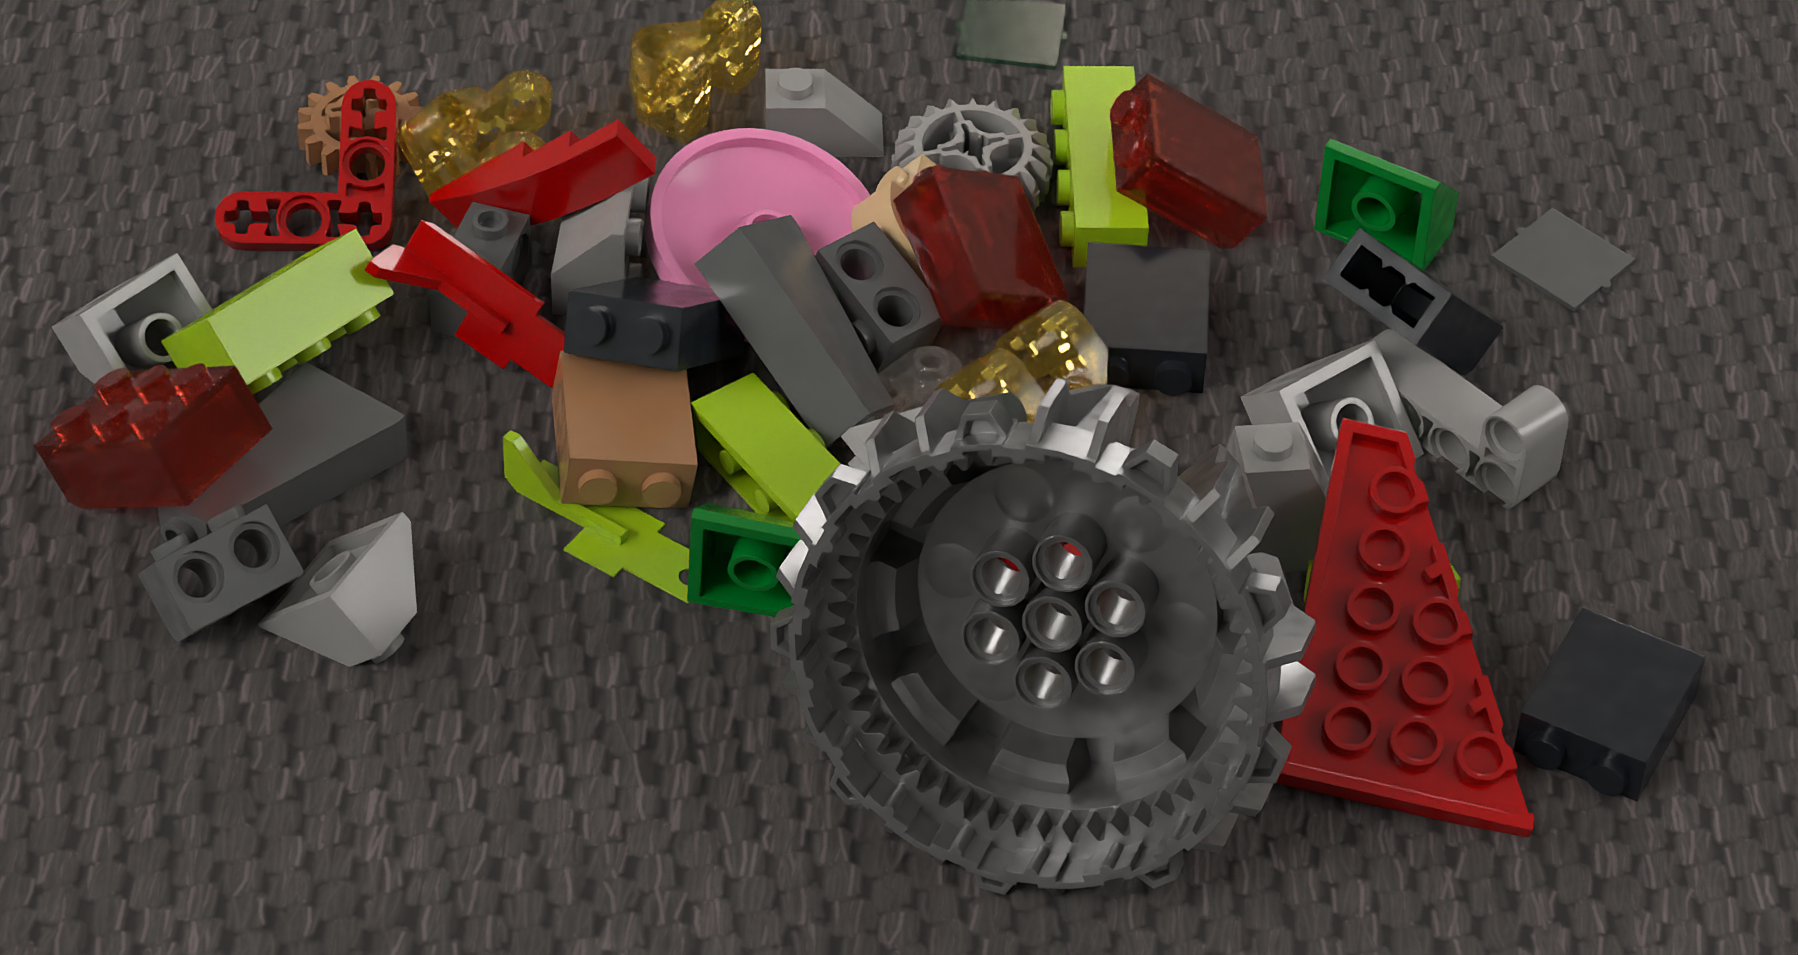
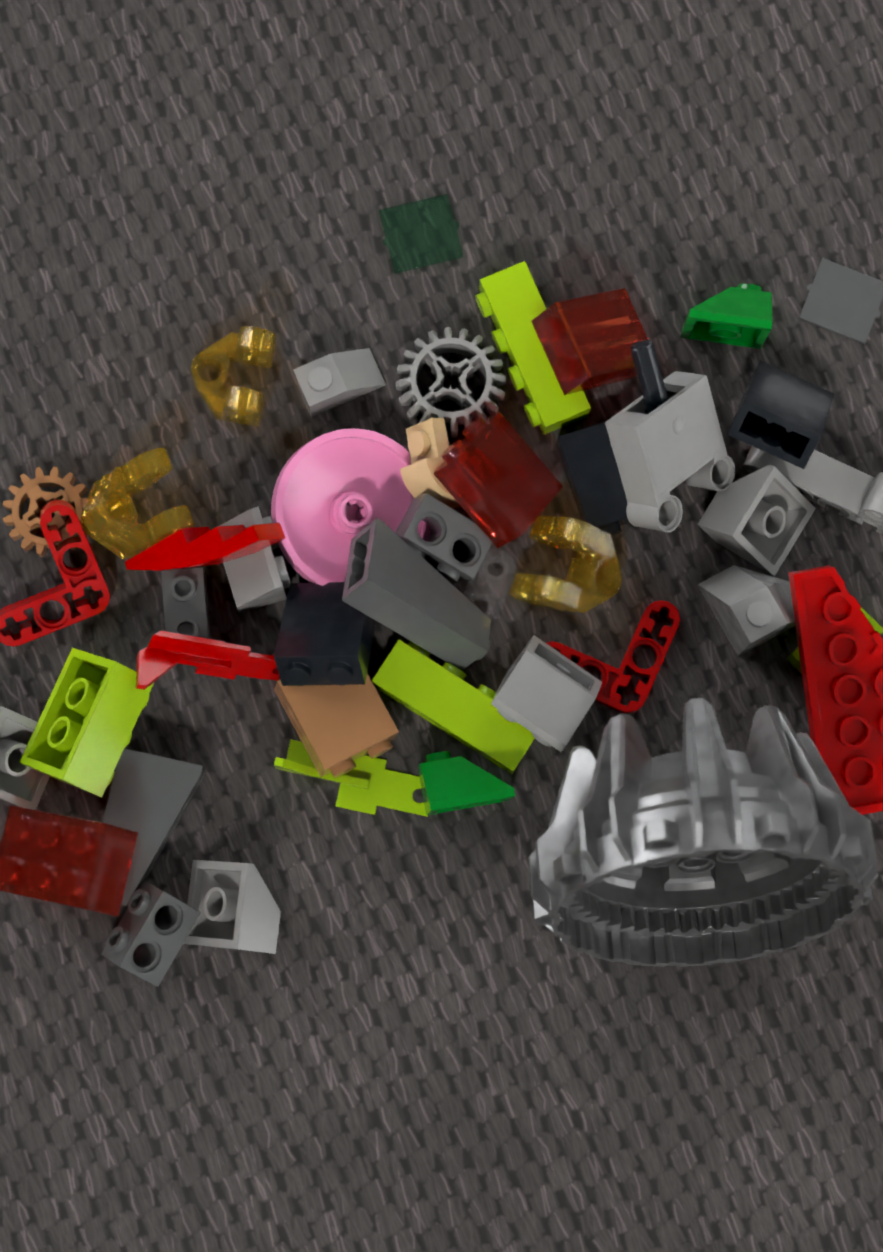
camera: 25 degrees left, 35 degrees up
(1236, 249) = (667, 440): none -> light grey piece

